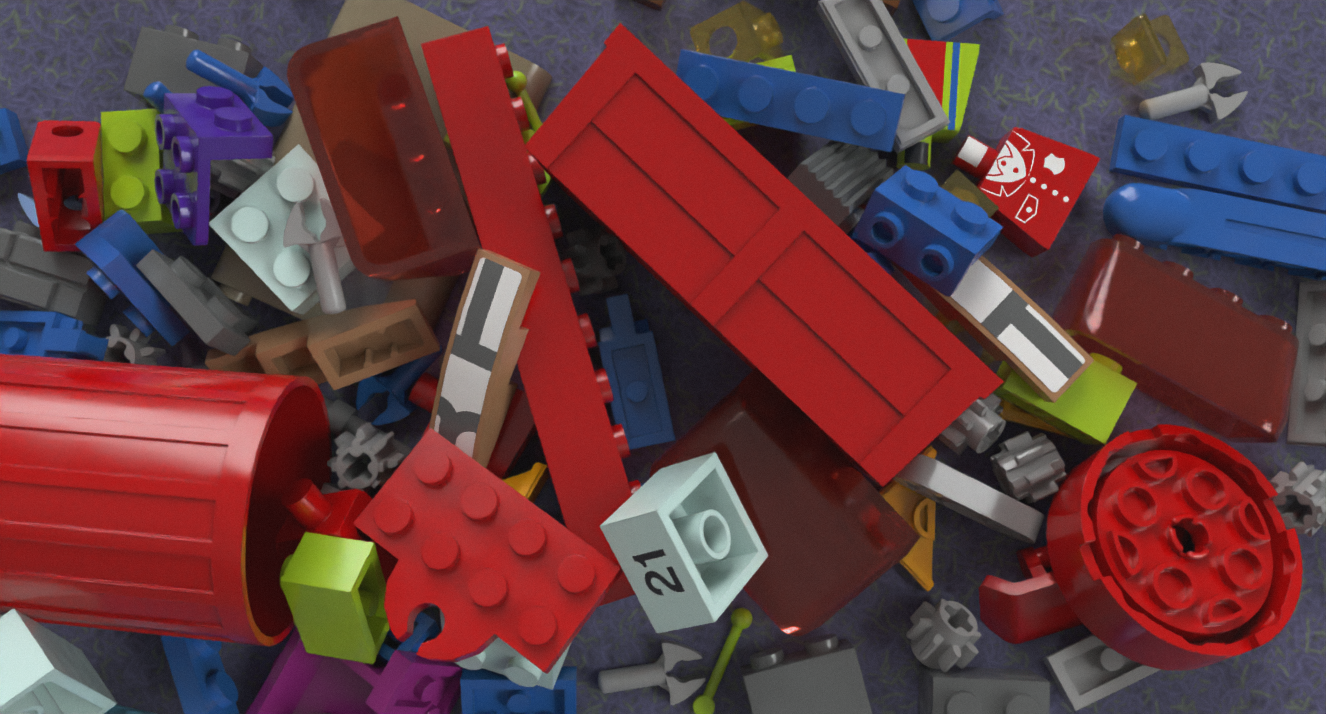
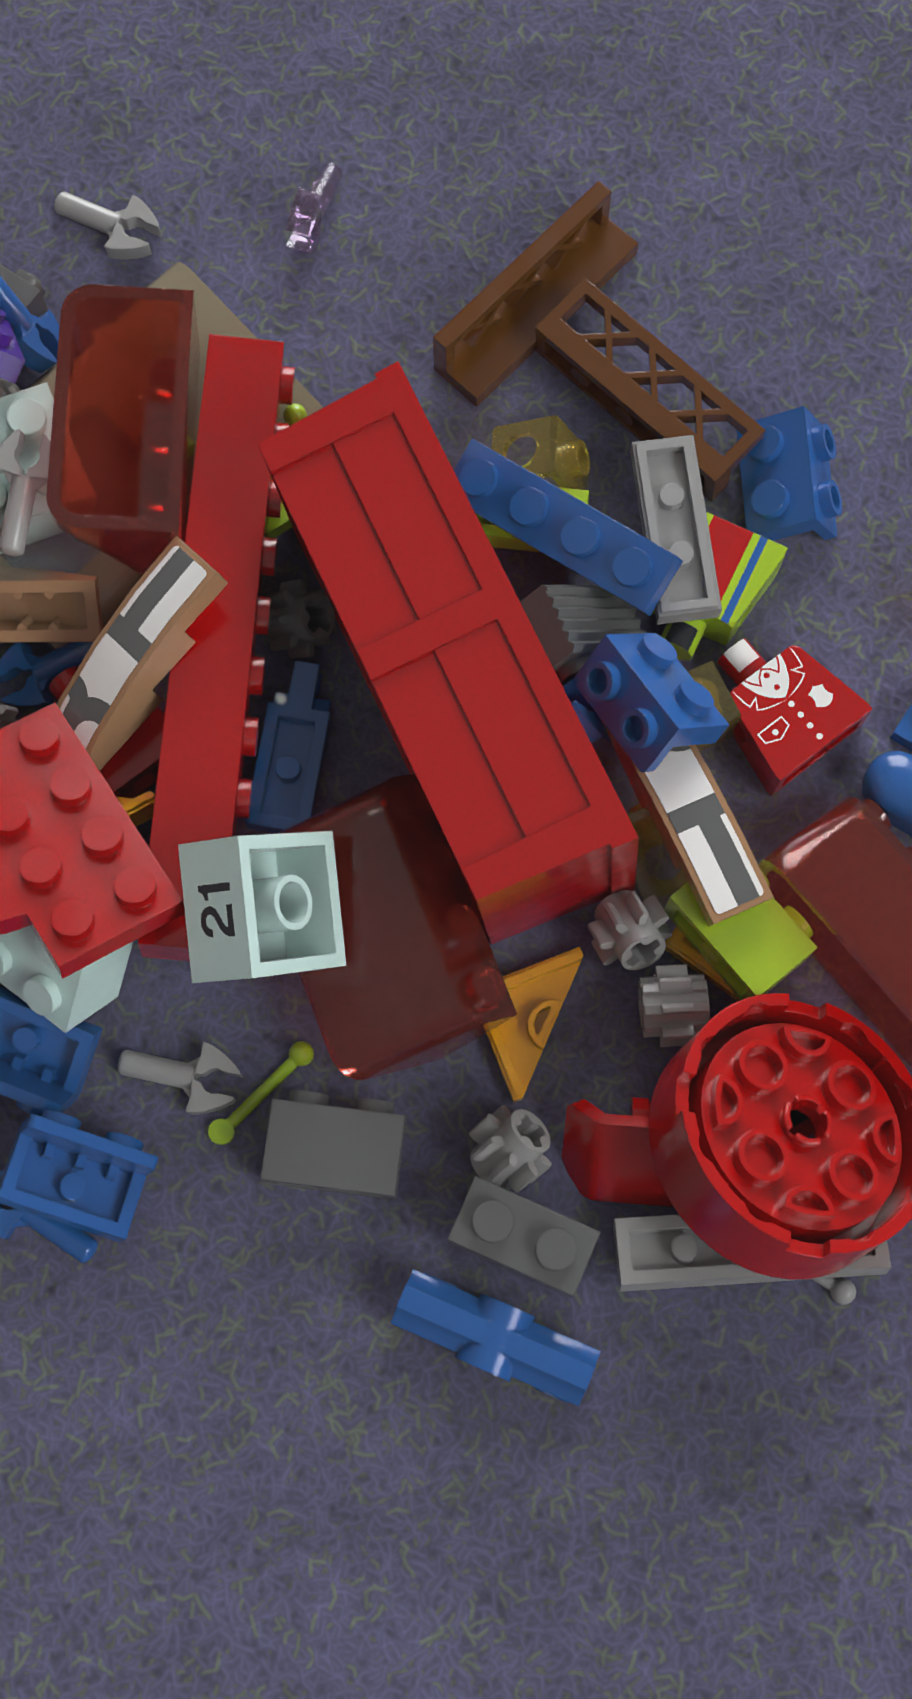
camera: 25 degrees right, 10 degrees down
(971, 498) = (594, 1009): light grey beam -> none

